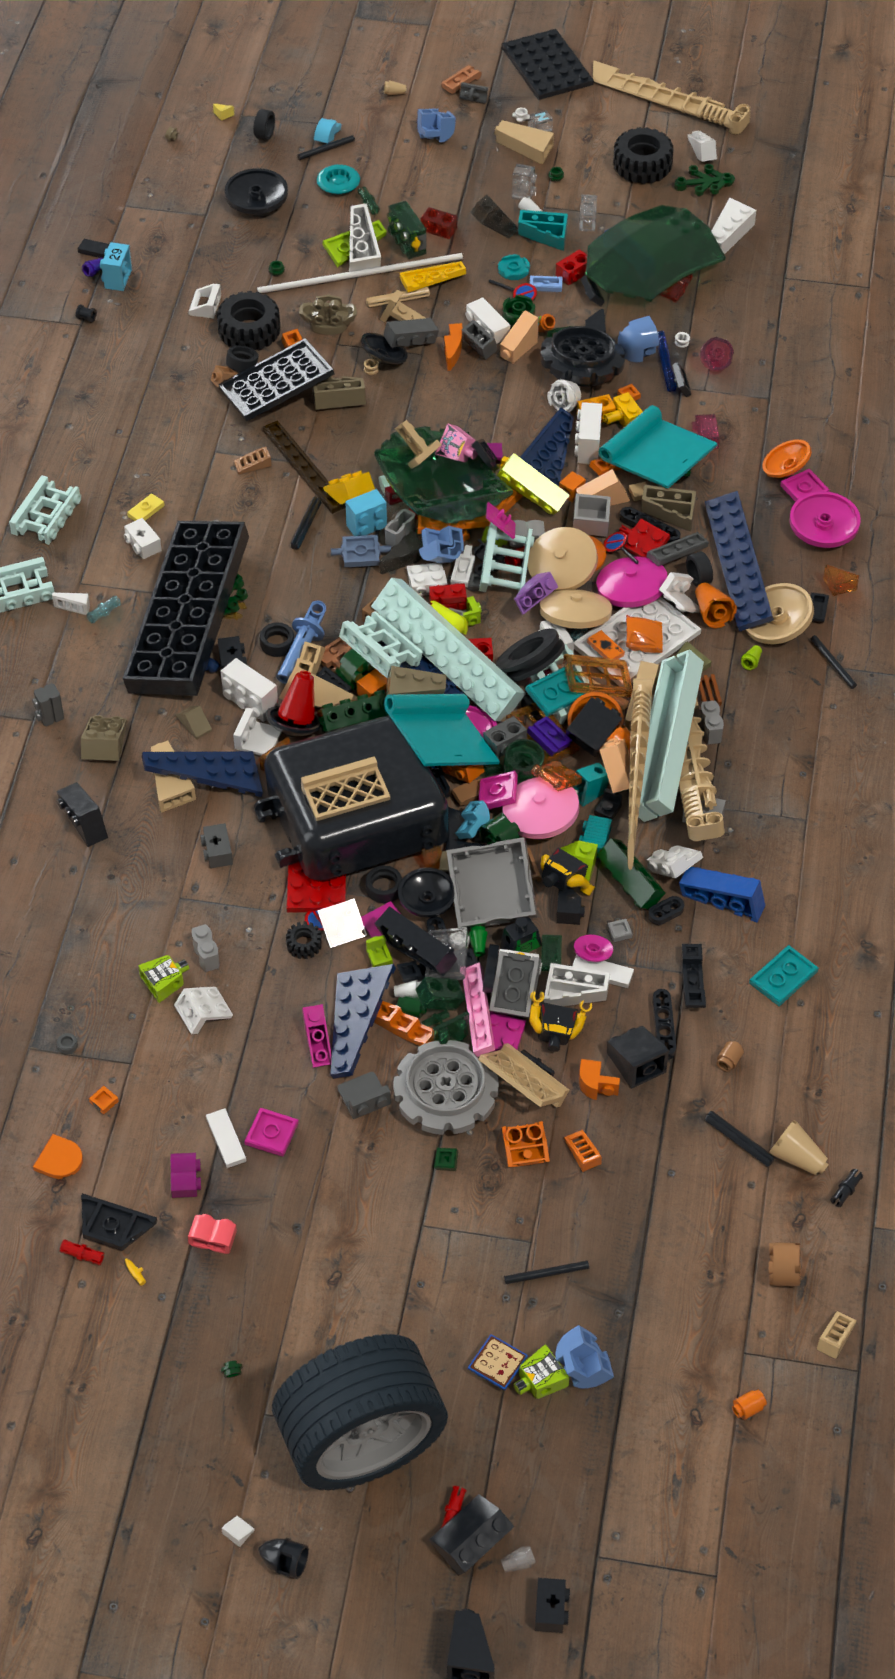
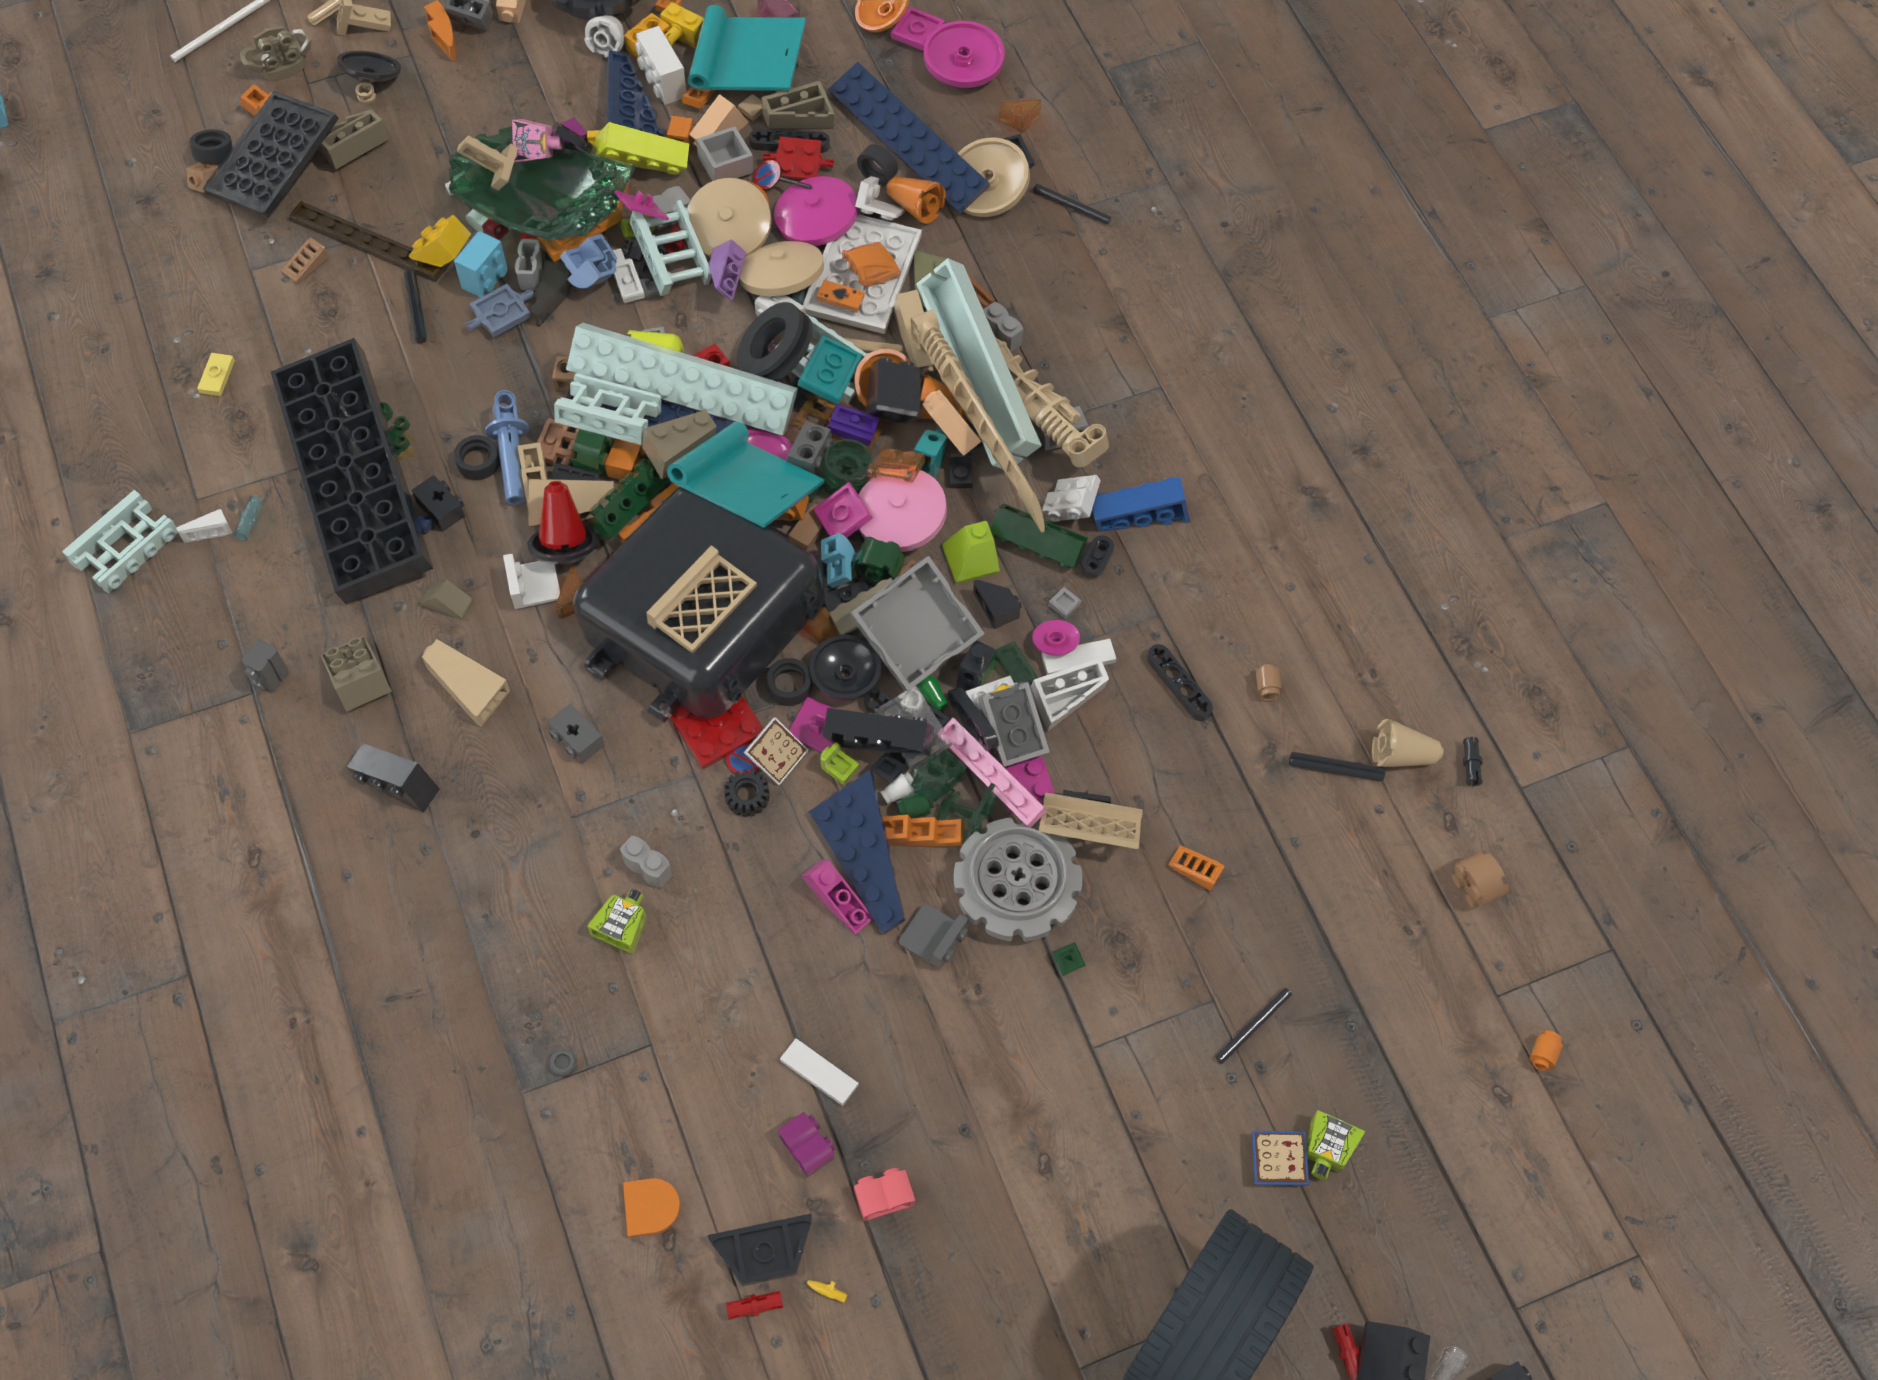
camera: 35 degrees left, 10 degrees up
(34, 503) = (77, 431): light aqua fence -> none
(103, 1100) = (653, 1107): orange plate -> none
(142, 538) = (238, 411): white brick -> none
(199, 1005) = (688, 934): white bracket -> none
(209, 309) = (127, 107): white tile -> none
(214, 768) = (507, 647): dark blue wing -> none
(231, 1369) = (1014, 1341): dark green plate -> none
(248, 307) = (184, 80): black tyre -> none
(248, 688) = (489, 532): white brick -> none
(271, 1132) = (865, 1036): dark pink plate -> none
(276, 267) = (177, 23): dark green plate -> none
(410, 332) = (386, 34): dark grey brick -> none
(425, 575) = (595, 307): white plate -> none
(450, 596) = (636, 316): red brick -> none
(473, 612) = (671, 321): lime bracket -> none
(525, 1145) = (1138, 894): orange slope -> none
(556, 1023) = (1079, 741): torso -> none
(565, 872) = (973, 569): black torso -> none
(583, 1358) = (1364, 1102): medium blue brick -> none
(593, 1083) = (1154, 787): orange brick -> none
(596, 831) = (970, 507): teal brick -> none
(604, 663) = (840, 321): clear orange piece -> none
(638, 1056) = (1181, 731): black slope -> none
(677, 549) = (838, 153): dark grey tile -> none
(693, 976) = (1173, 617): black slope -> none
(751, 658) = (992, 238): lime cone -> none
(783, 975) = (1256, 566): teal tile -> none
(830, 1345) = (1569, 939): tan slope -> none

